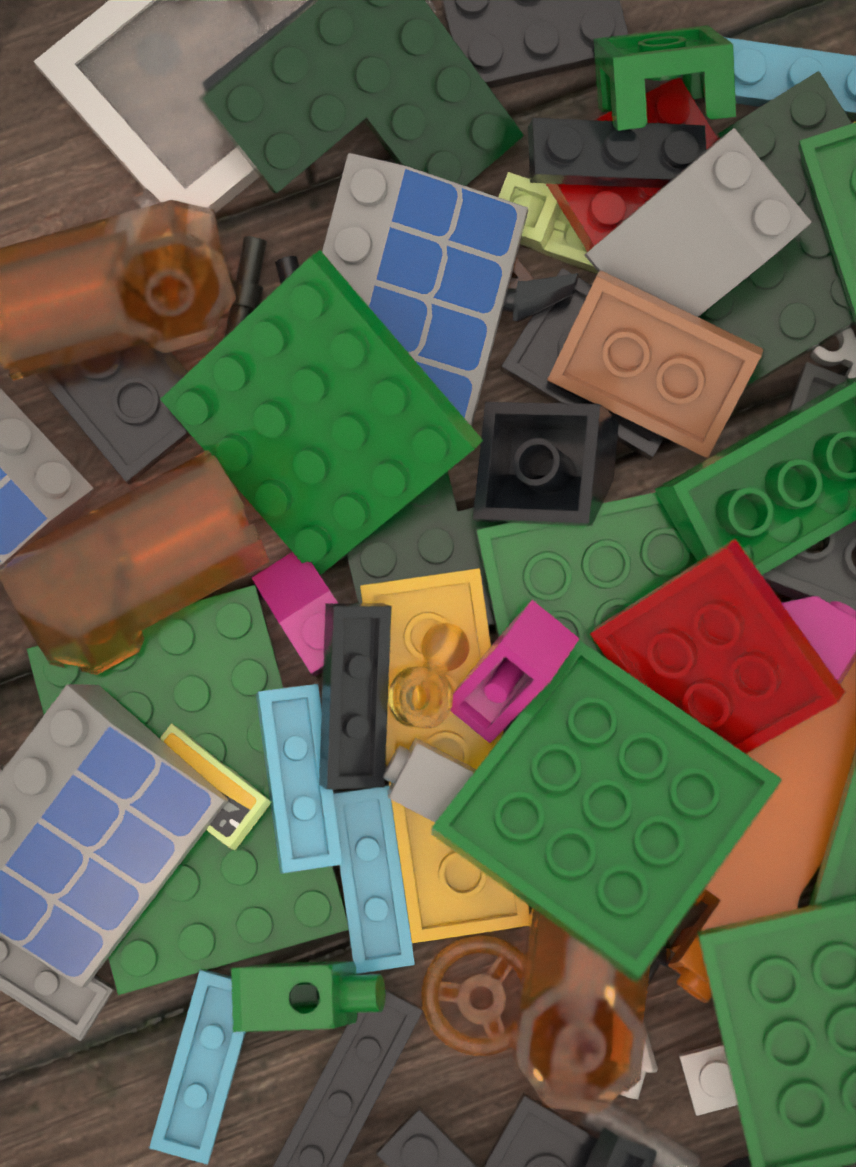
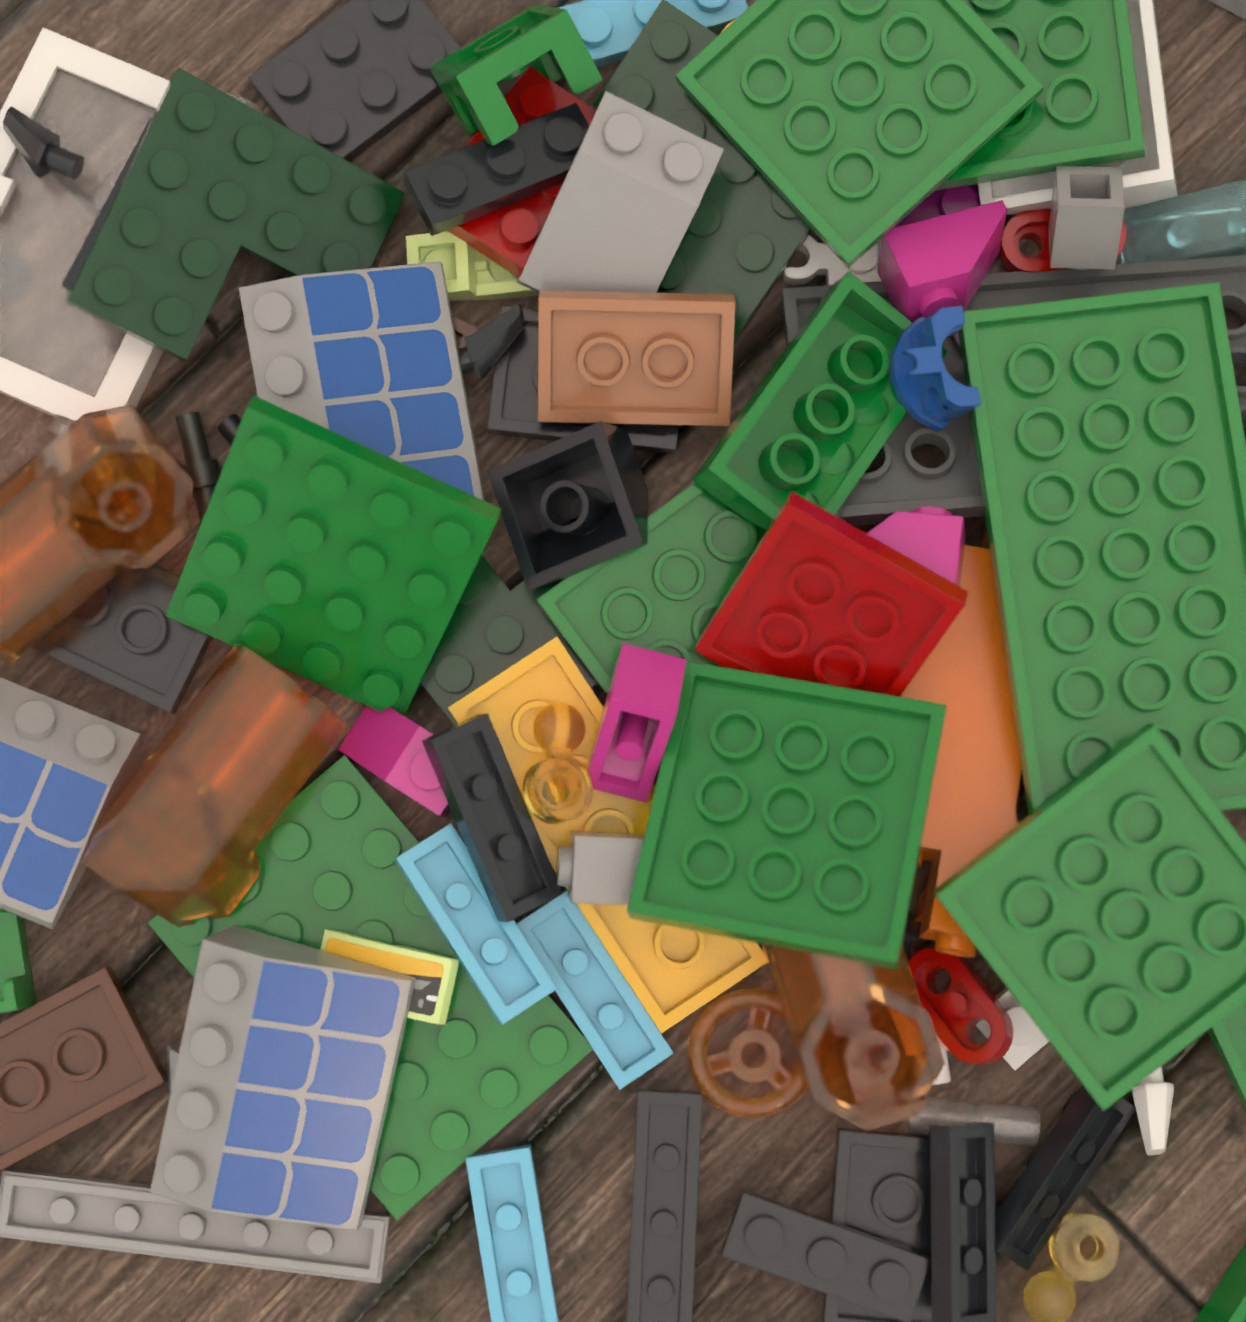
camera: 25 degrees left, 0 degrees up
(289, 999) = (577, 1135): green torso -> none
(675, 1041) = (961, 1007): none -> red plate

